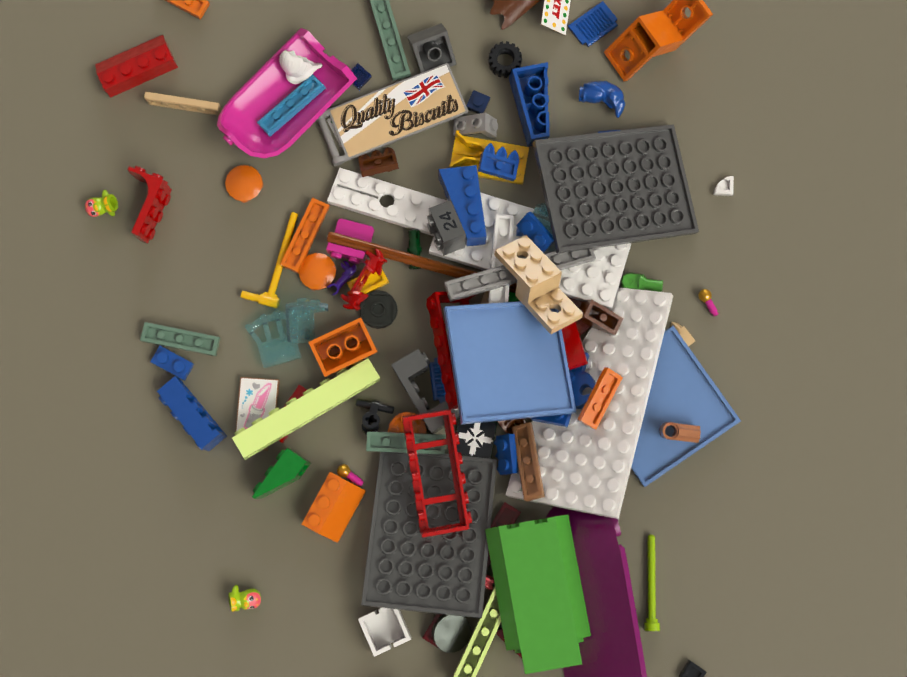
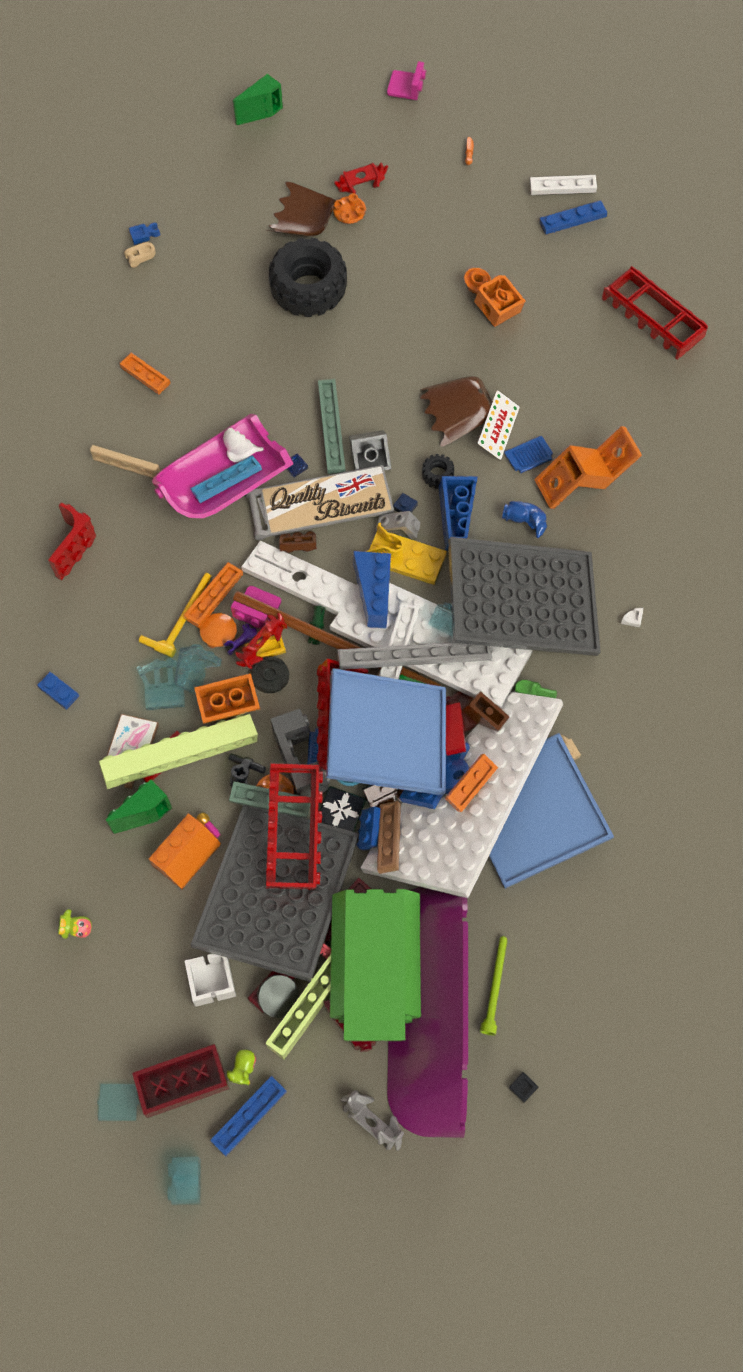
camera: 10 degrees right, 15 degrees down
(100, 205) = (22, 537): lime animal -> none
(135, 66) = (89, 425): red slope -> none
(180, 339) = (71, 669): sand green plate -> none
(191, 414) = (65, 739): blue wedge -> none
(243, 183) = (165, 540): orange dish -> none
(446, 227) = (350, 603): dark grey brick -> none
(499, 164) = (413, 558): blue plate -> none
(535, 230) = (436, 623): blue plate -> none
(538, 284) = (429, 666): tan bracket -> none
(682, 432) = (552, 836): nougat piece -> none
(705, 296) = (598, 715): piece -> none

